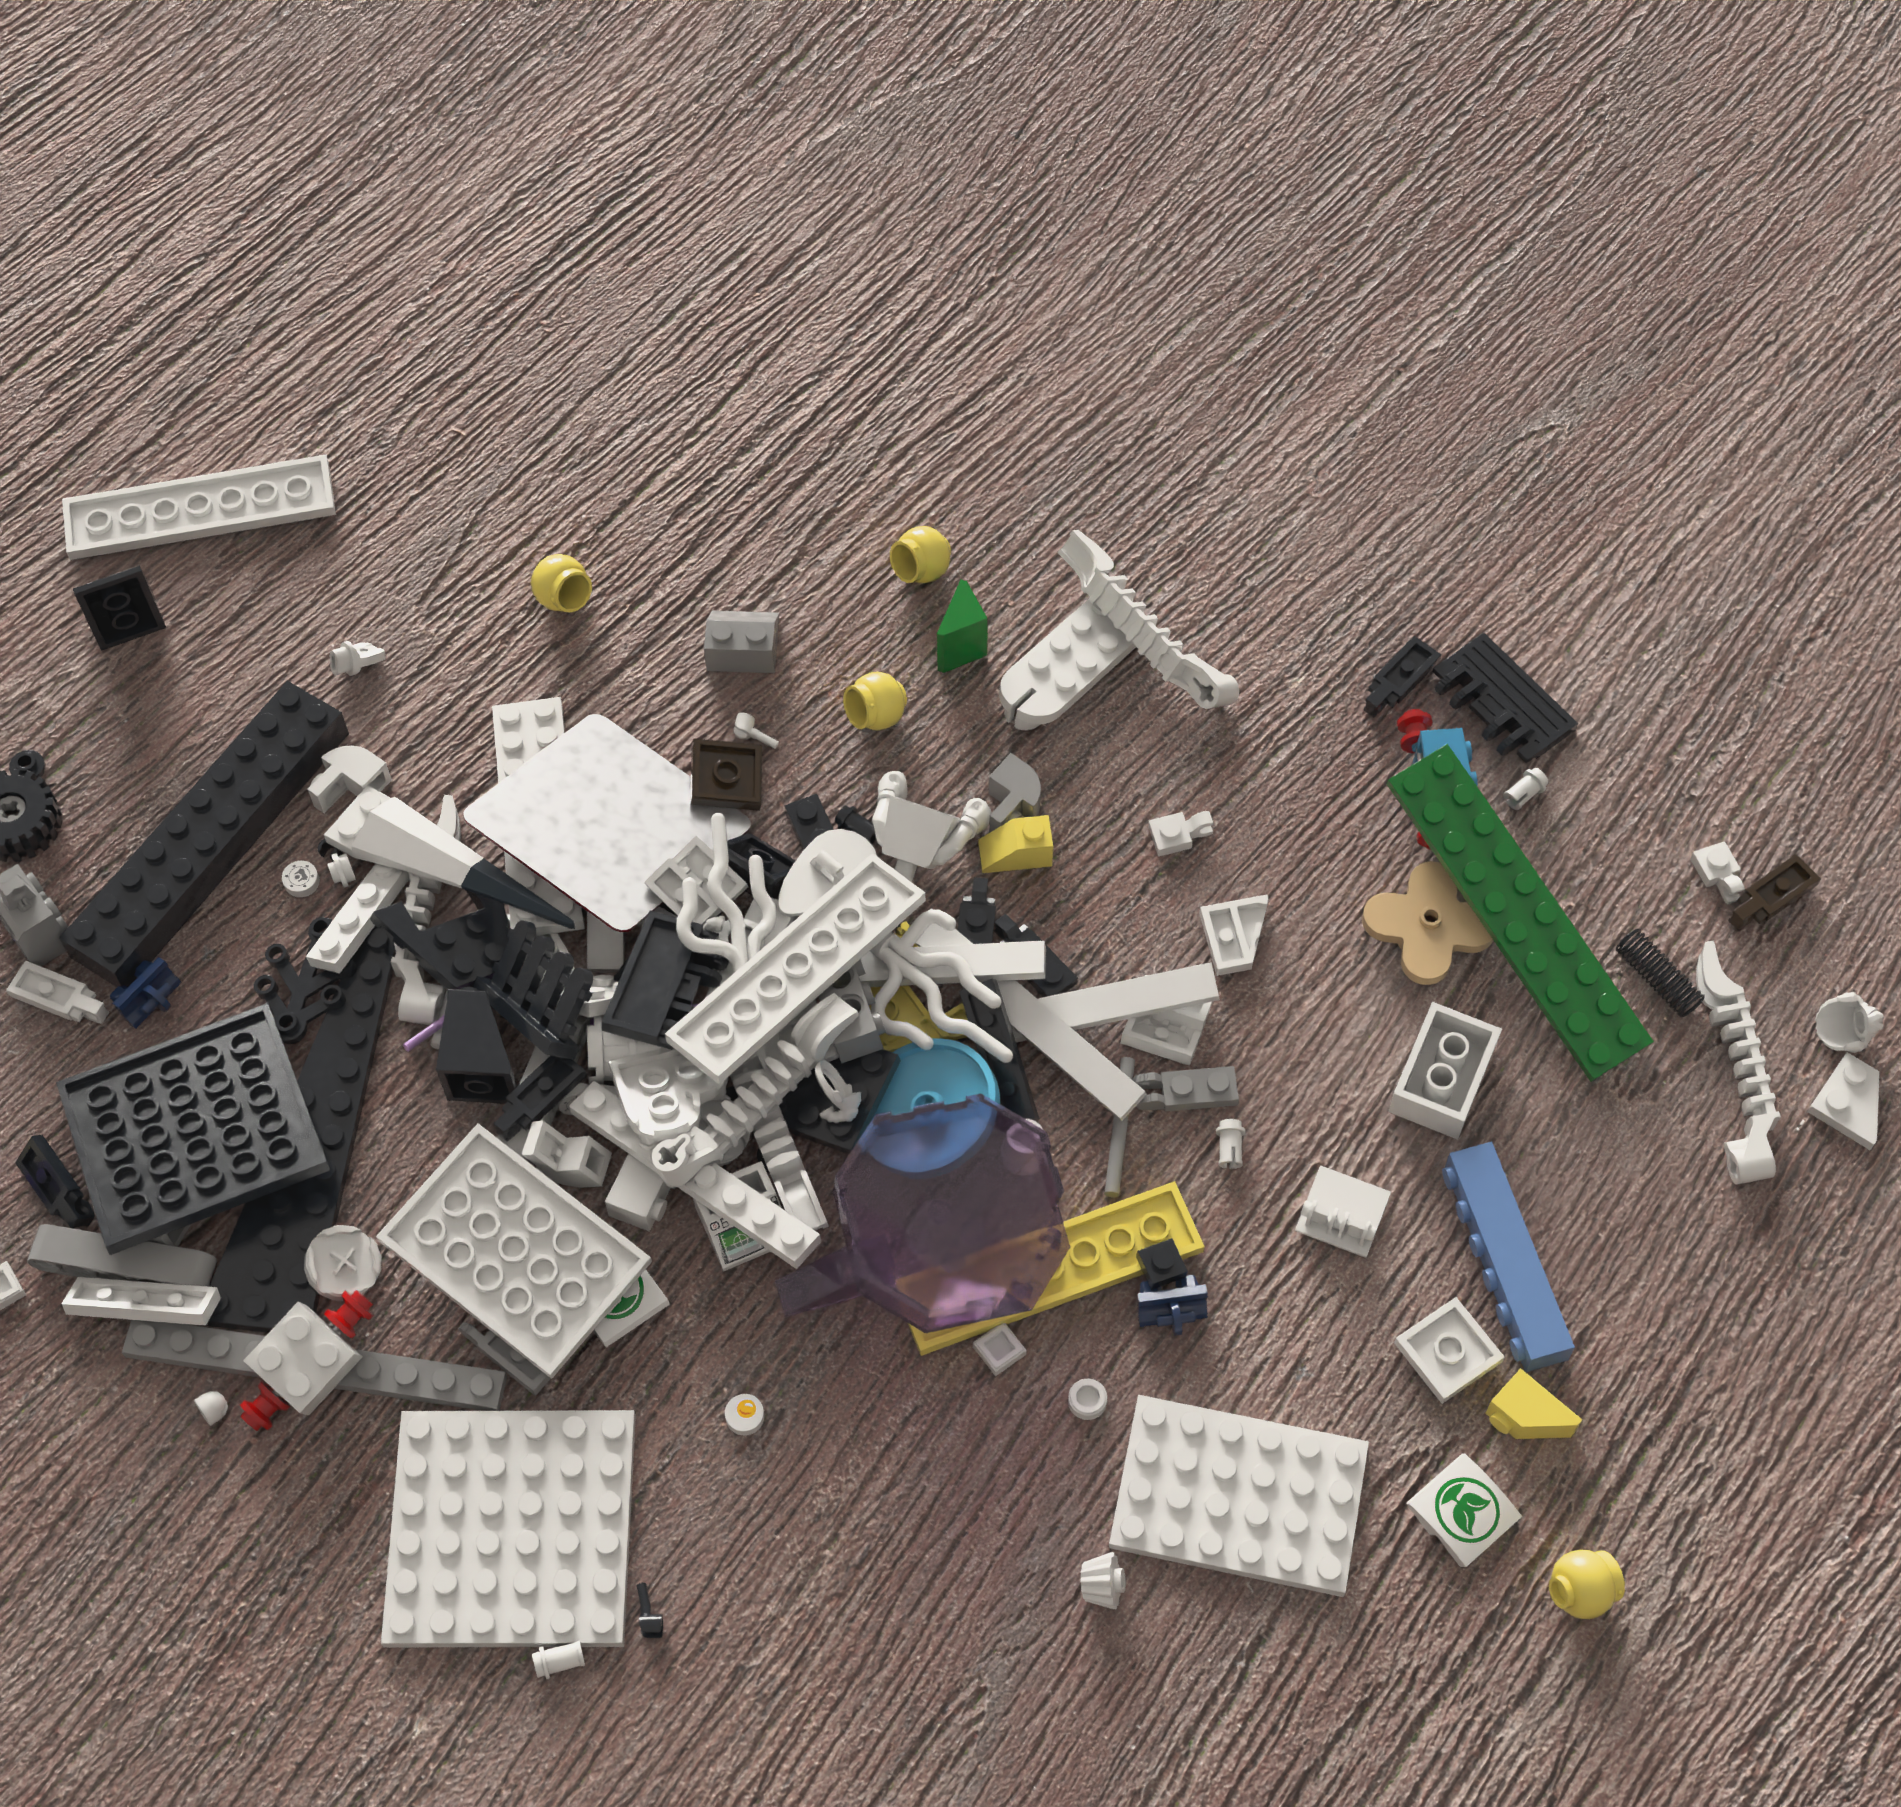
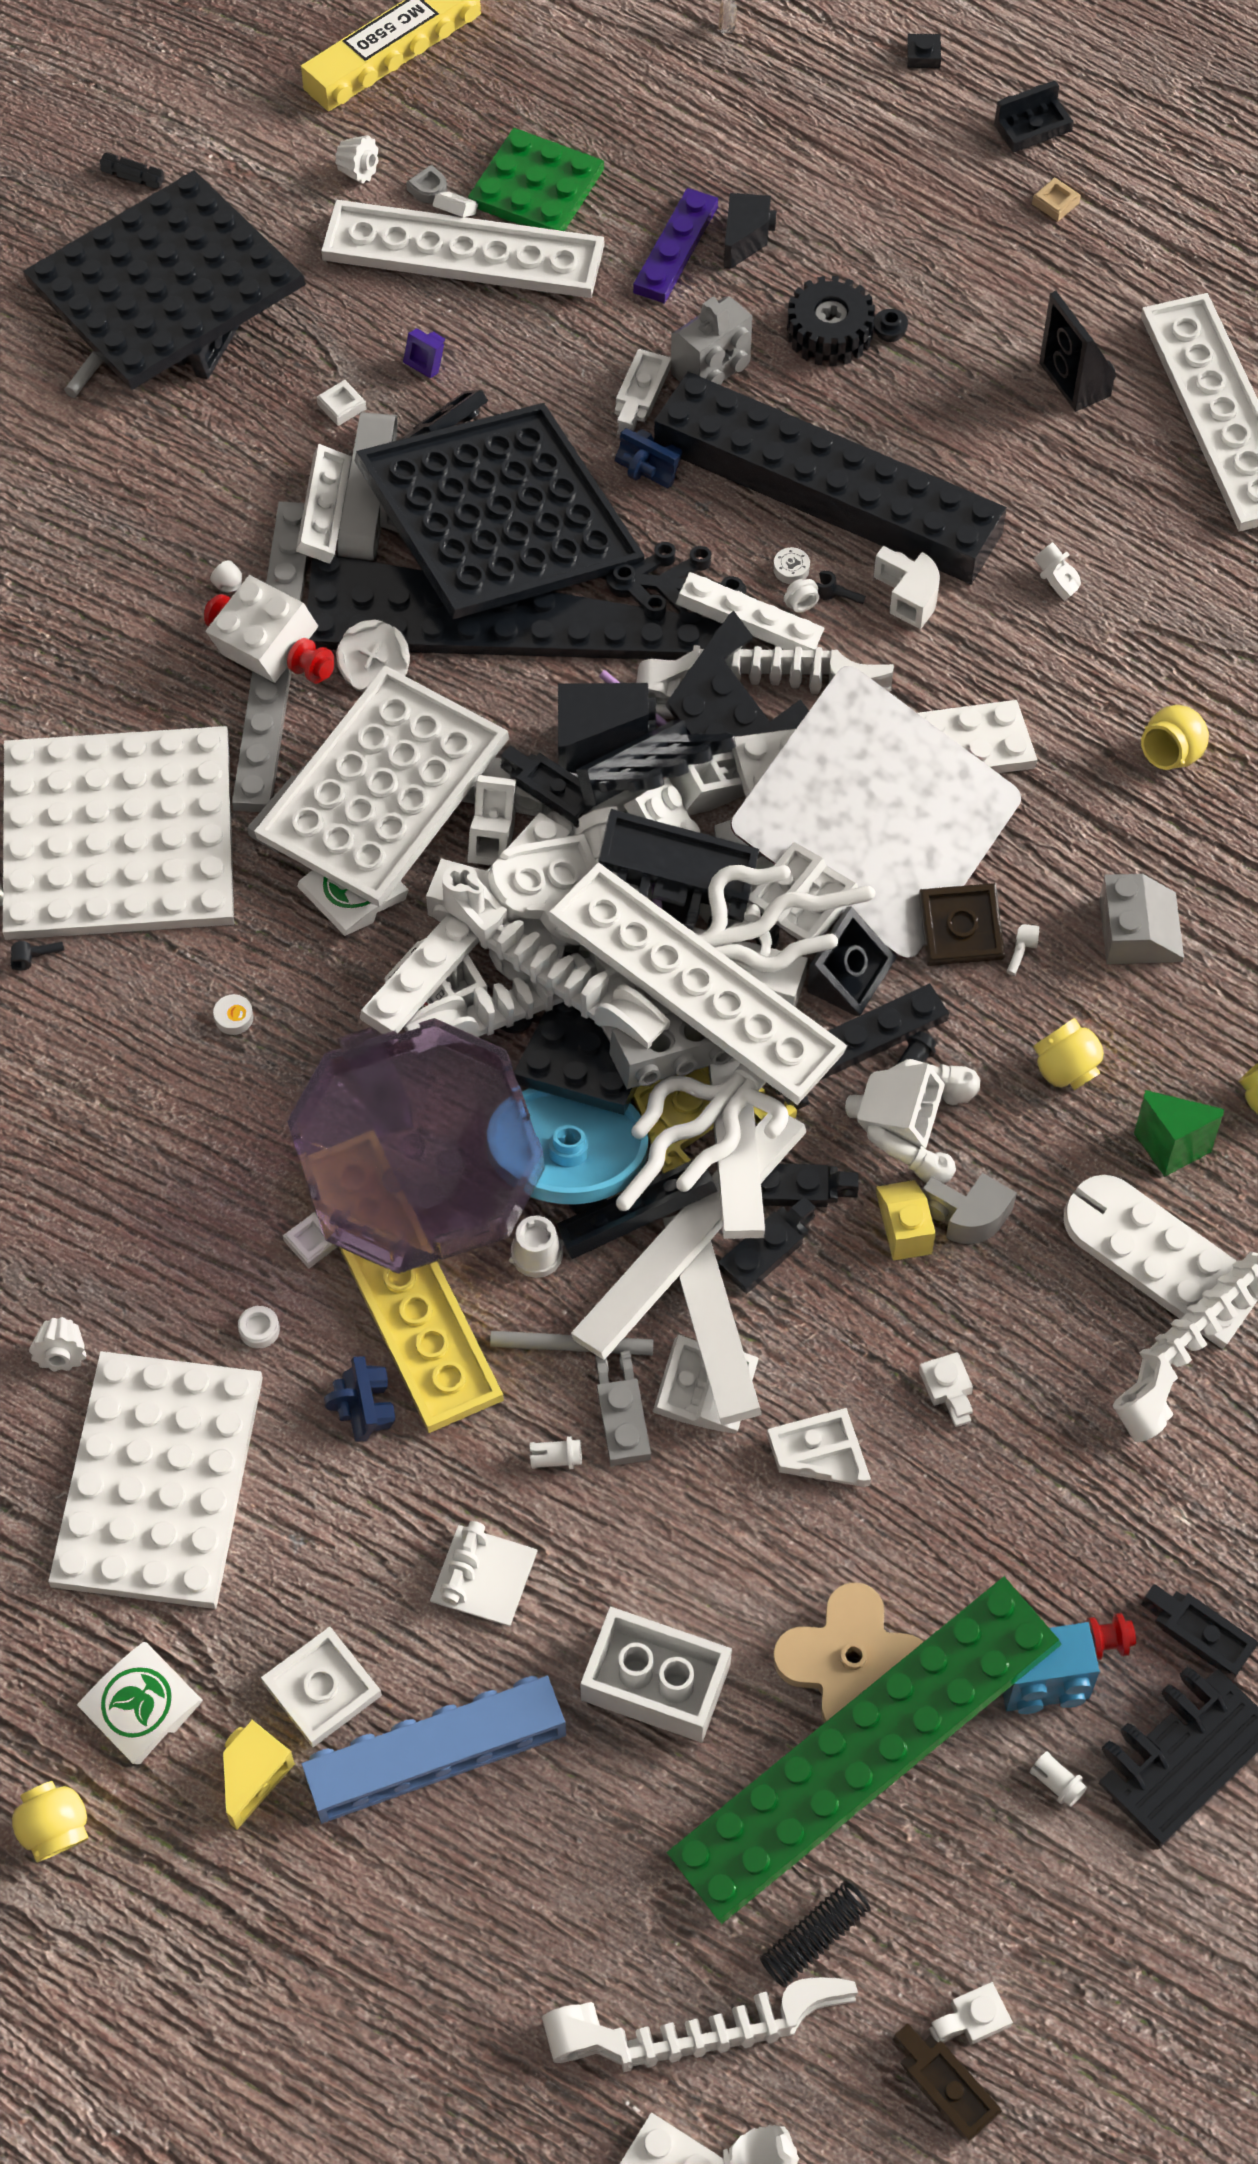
camera: 85 degrees right, 0 degrees up
(399, 837) = (834, 631): white plate -> none
(821, 868) = (863, 1026): white shield -> none
(842, 1096) = (556, 1055): white piece -> none
(1161, 1264) = (401, 1380): black plate -> none

